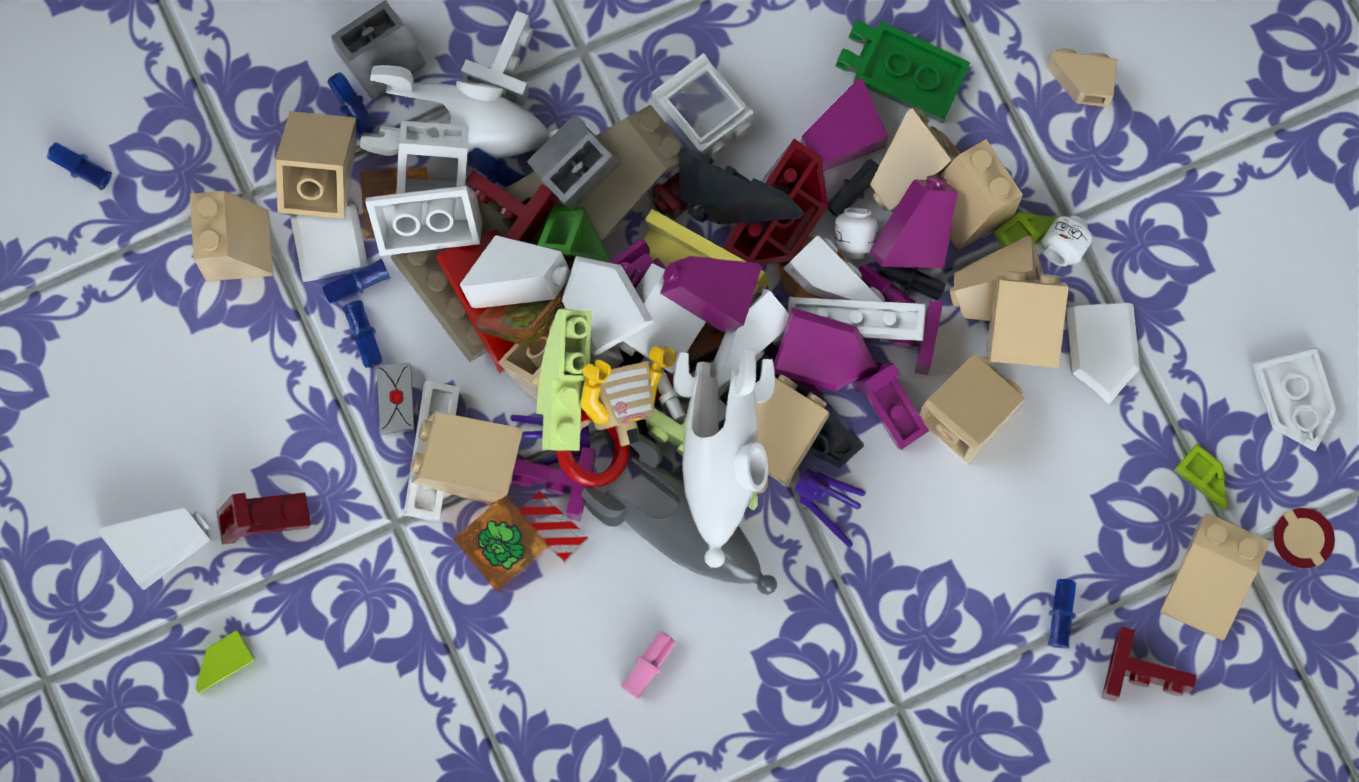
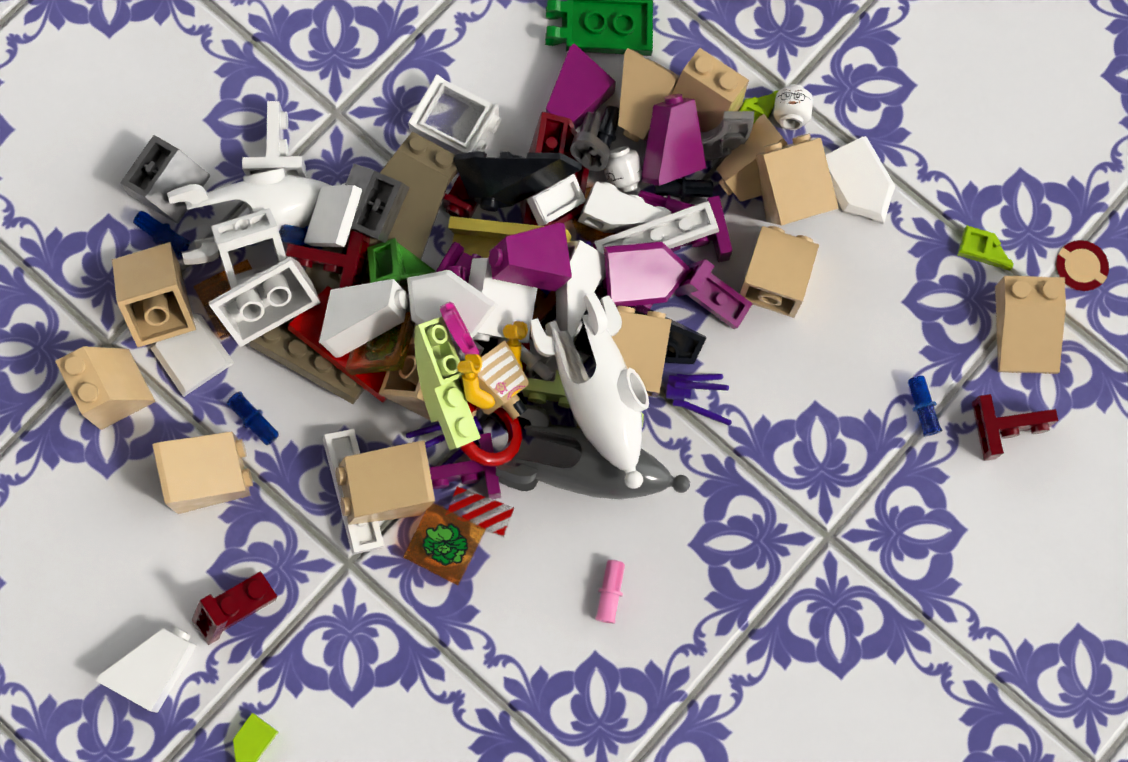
camera: 25 degrees left, 0 degrees up
(289, 366) = (202, 471): none -> tan slope
(356, 281) = (228, 377): clear blue axle -> none
(395, 398) = (303, 460): light grey tile -> none
(530, 160) = (333, 216): none -> white tile
(602, 330) = (458, 329): none -> dark pink tile
(767, 238) = (556, 200): none -> white tile
(826, 192) = (587, 144): none -> flat silver piece
(979, 243) = (728, 135): none -> light grey tile
(1297, 395) = (1026, 155): white tile -> none

